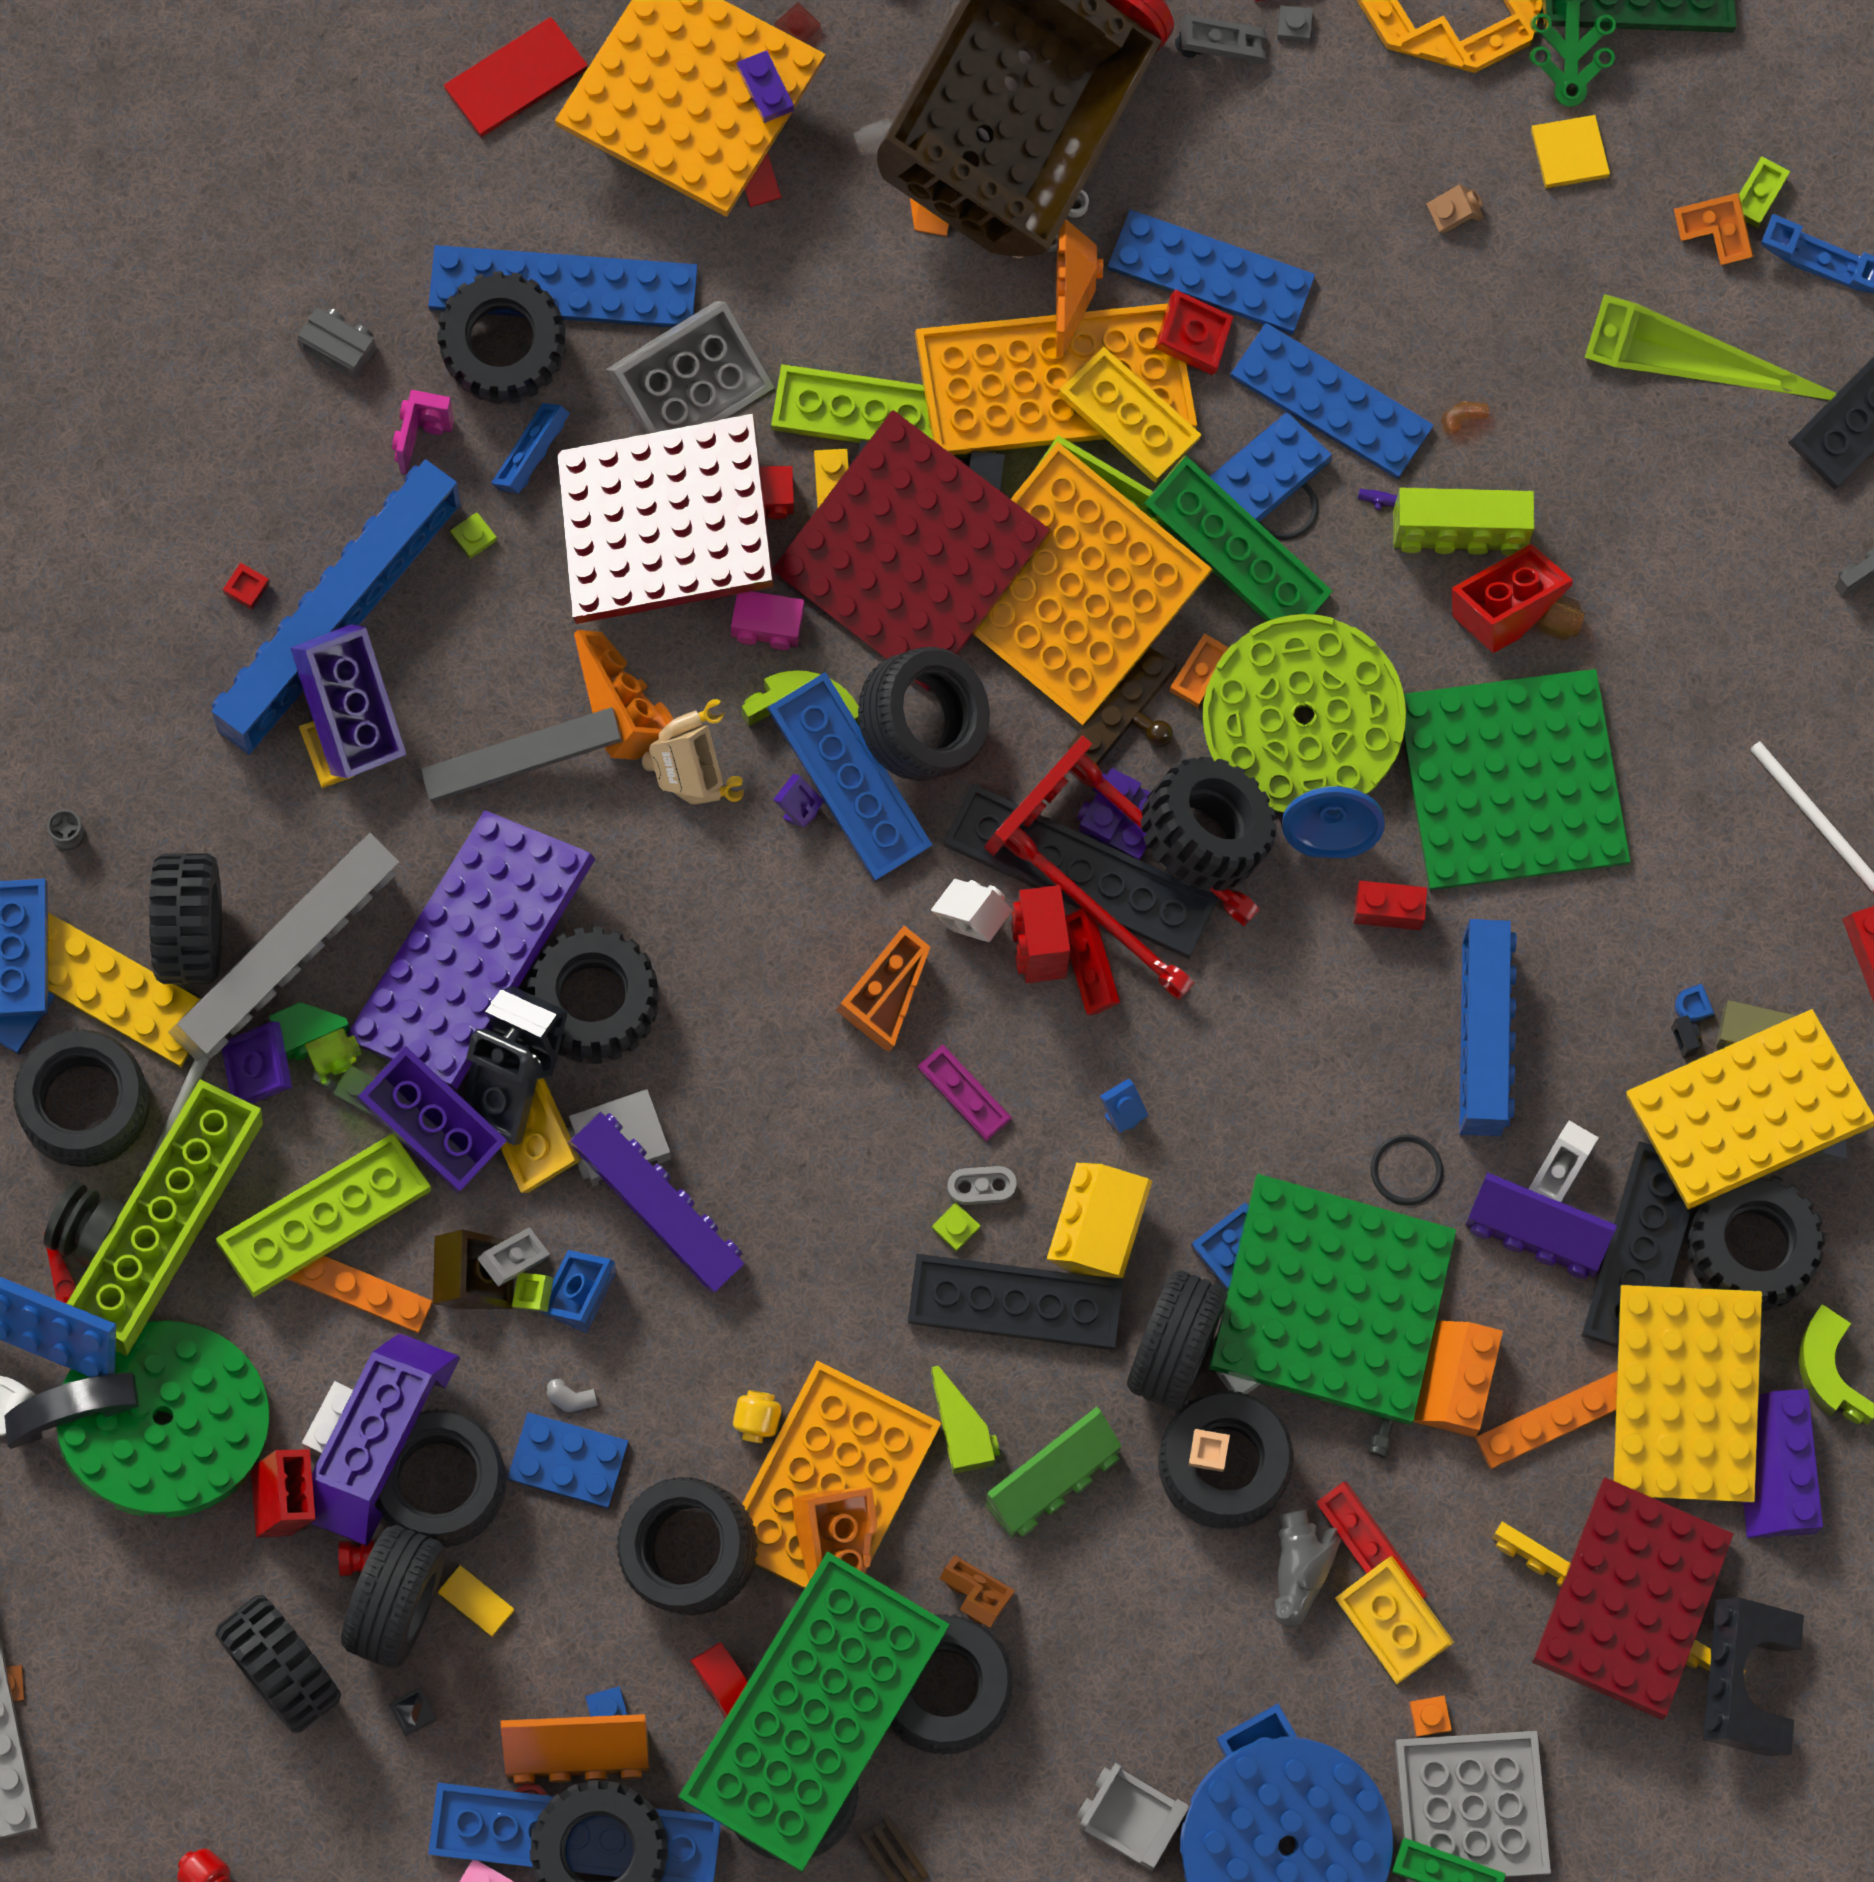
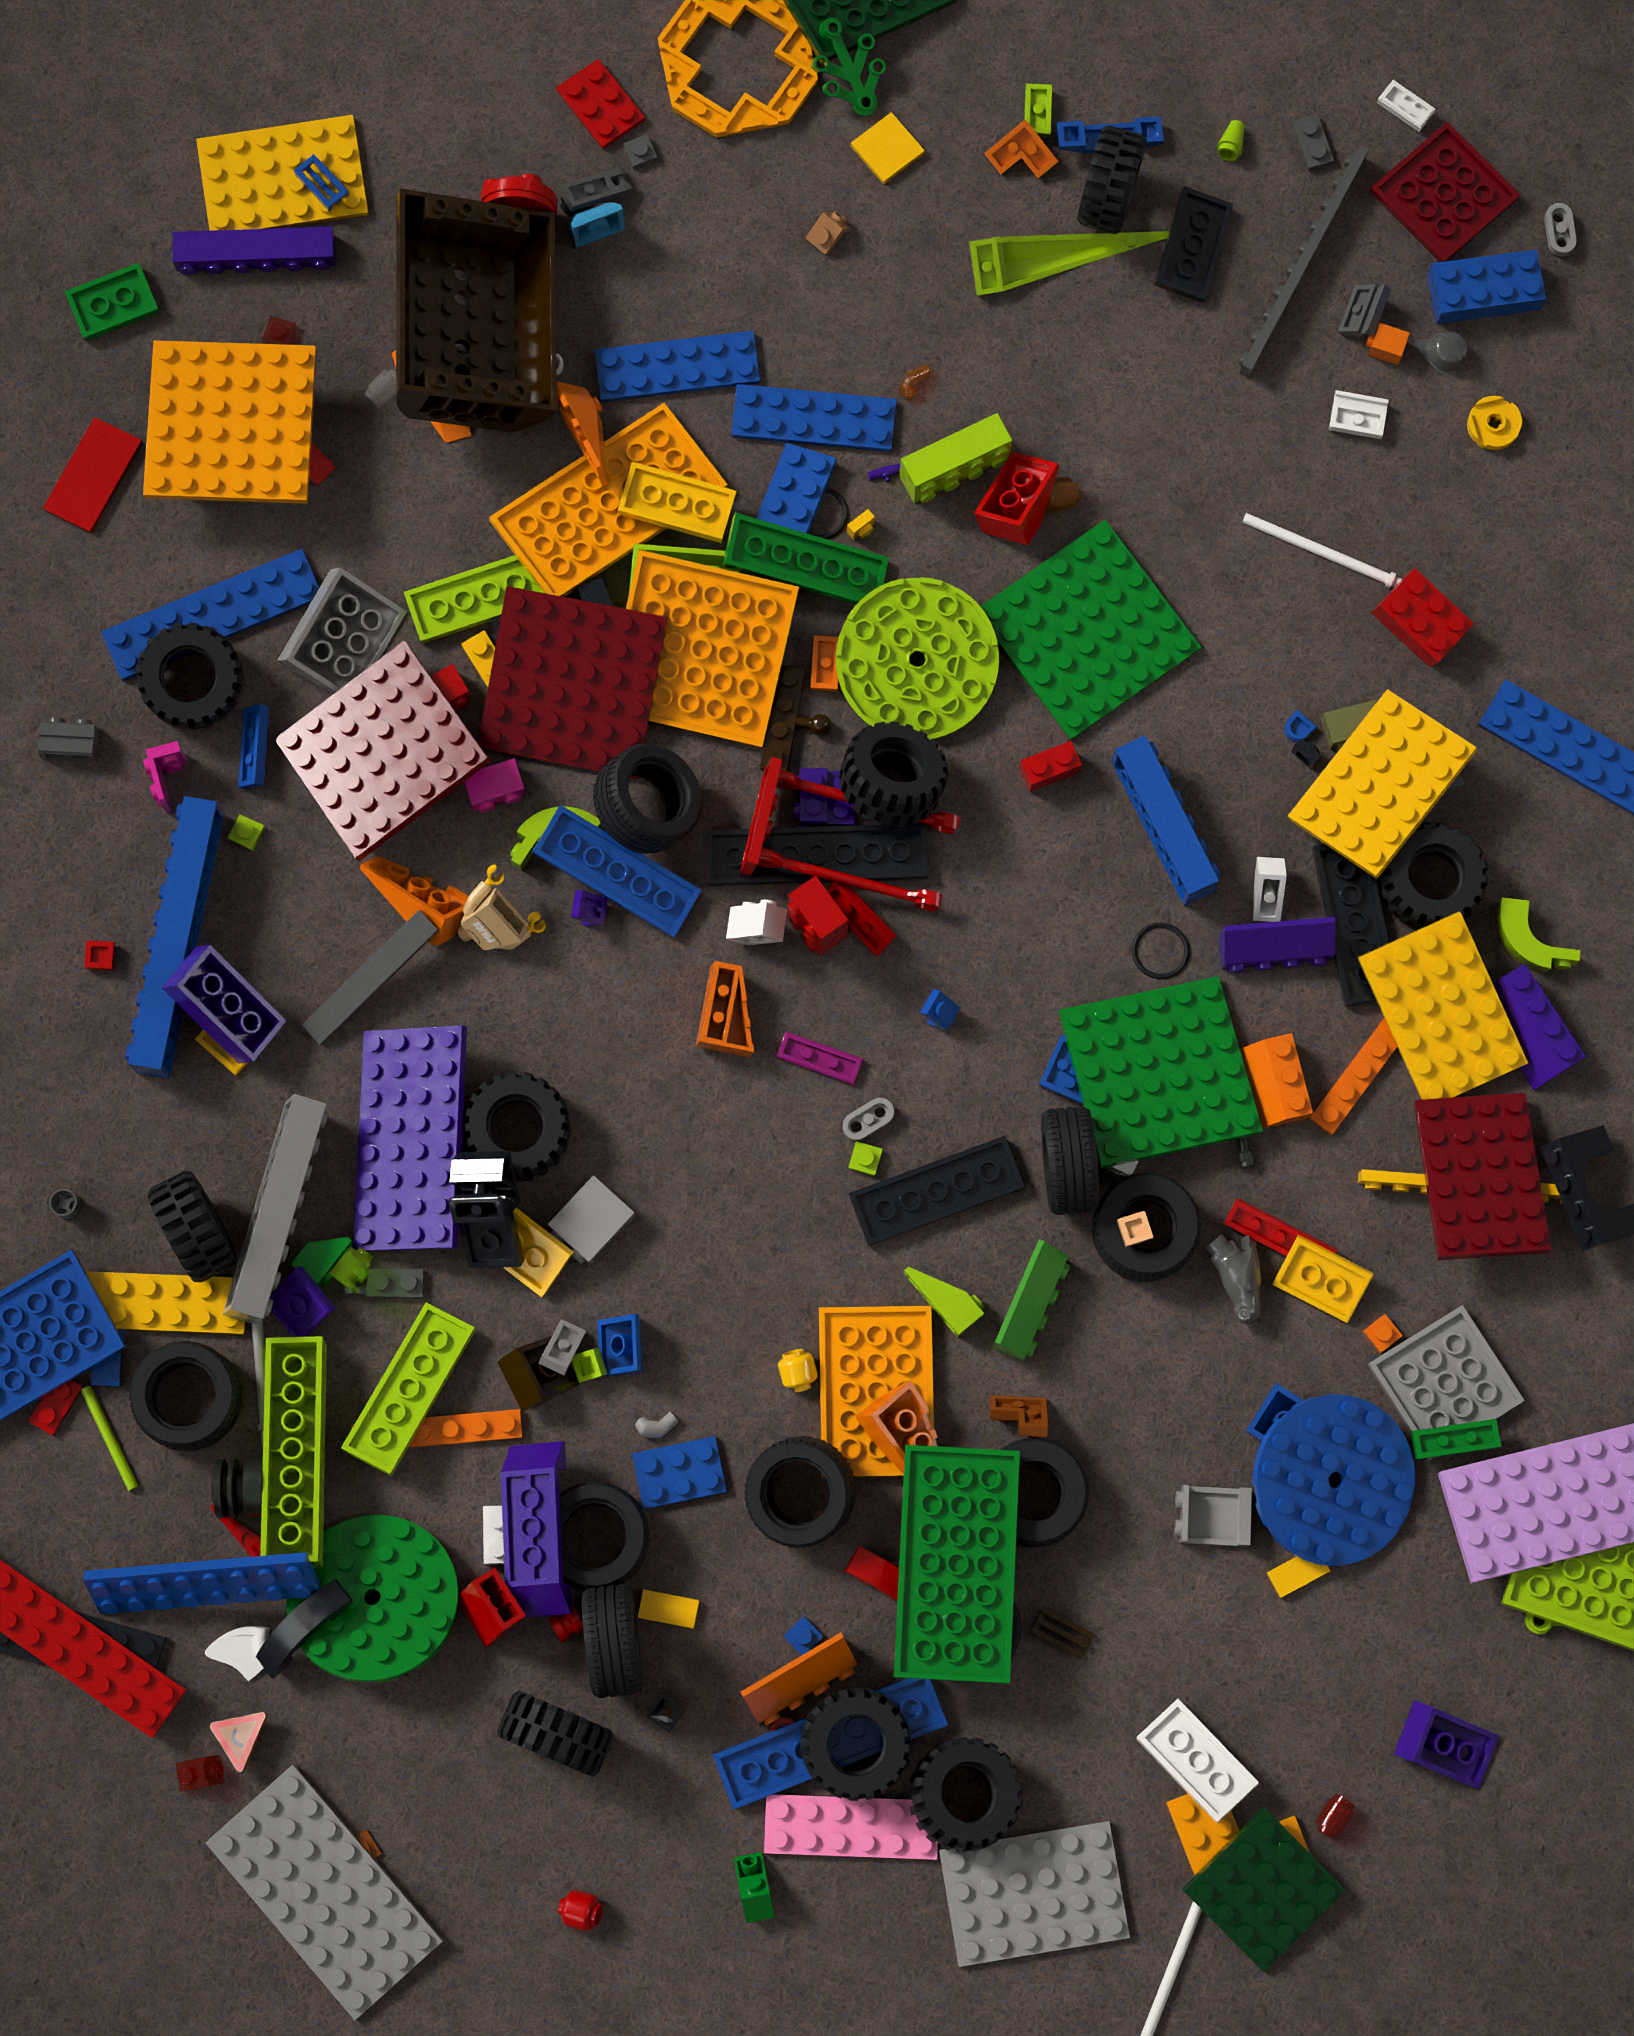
camera: 25 degrees left, 5 degrees up
(431, 1119) = (450, 1279): dark purple slope -> none
(656, 1202) = (643, 1254): dark purple brick -> none
(765, 86) = (285, 392): dark purple plate -> none
(1099, 1220) = (967, 1102): yellow slope -> none
(1194, 332) = (689, 417): red tile -> none
(1203, 76) = (596, 223): none -> dark azure slope
(1321, 541) = (861, 526): none -> yellow plate
(1333, 822) = (980, 727): blue dish -> none
(1797, 303) = (1111, 179): none -> black tyre

